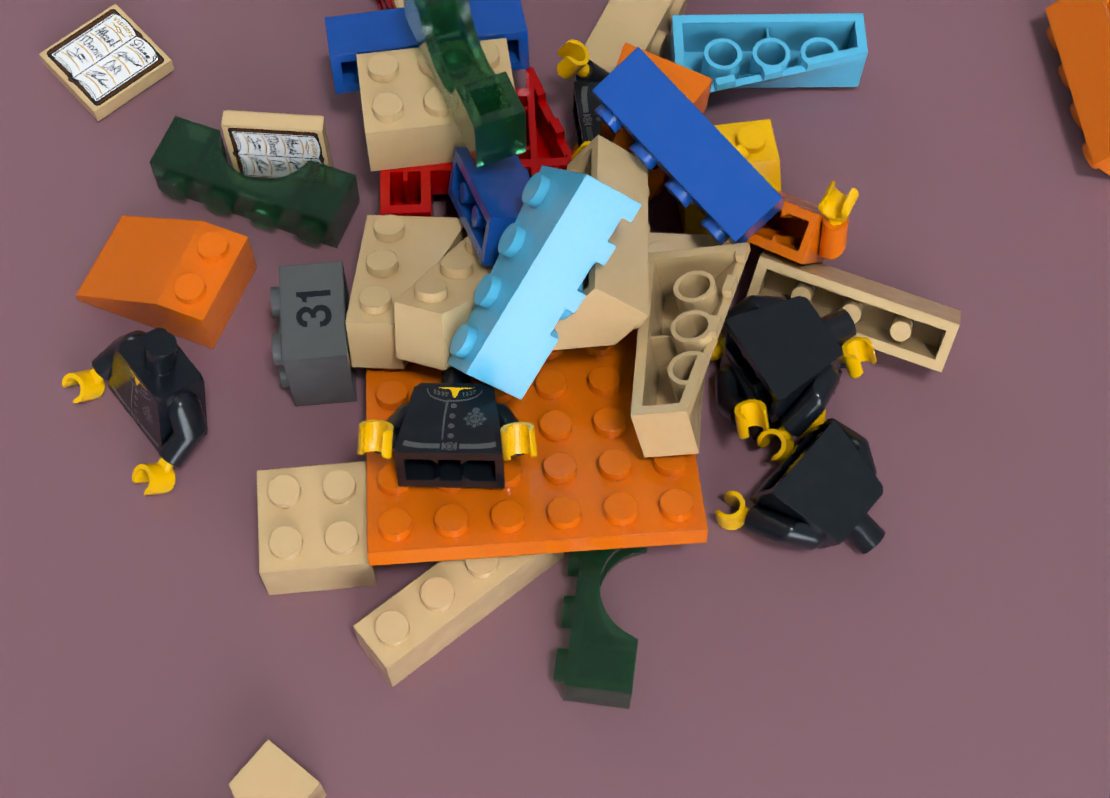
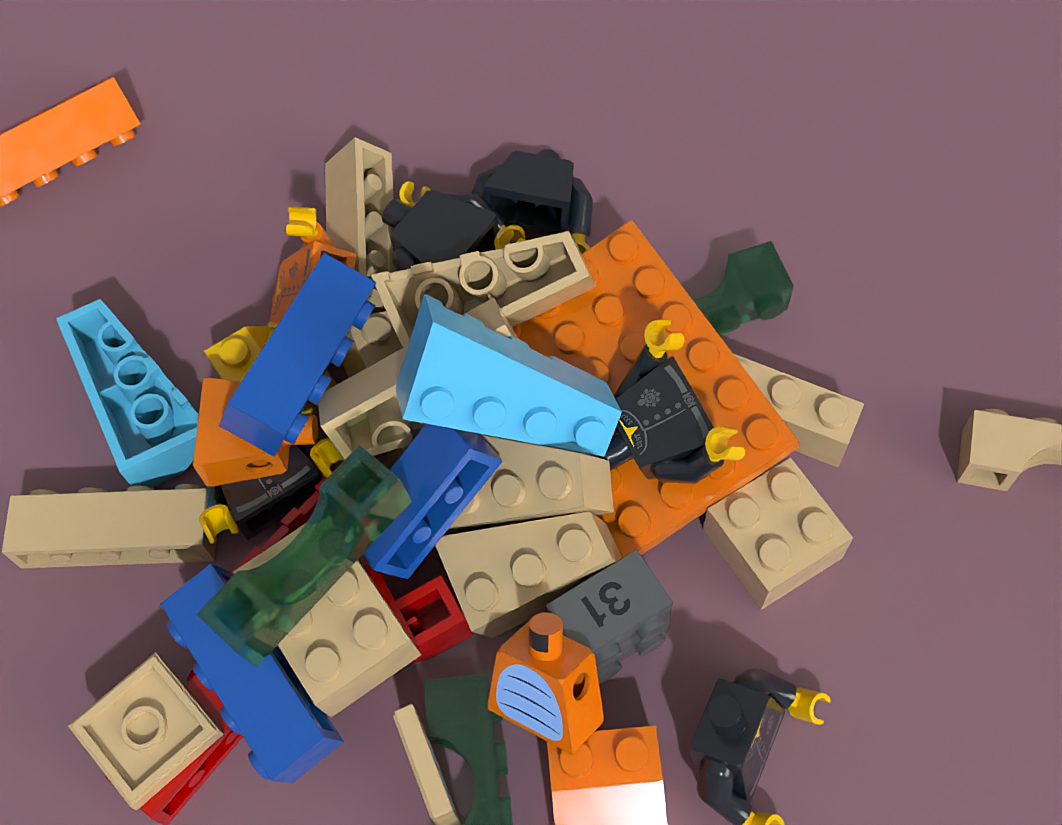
camera: 110 degrees left, 0 degrees up
(283, 238) = (547, 684): none -> orange torso

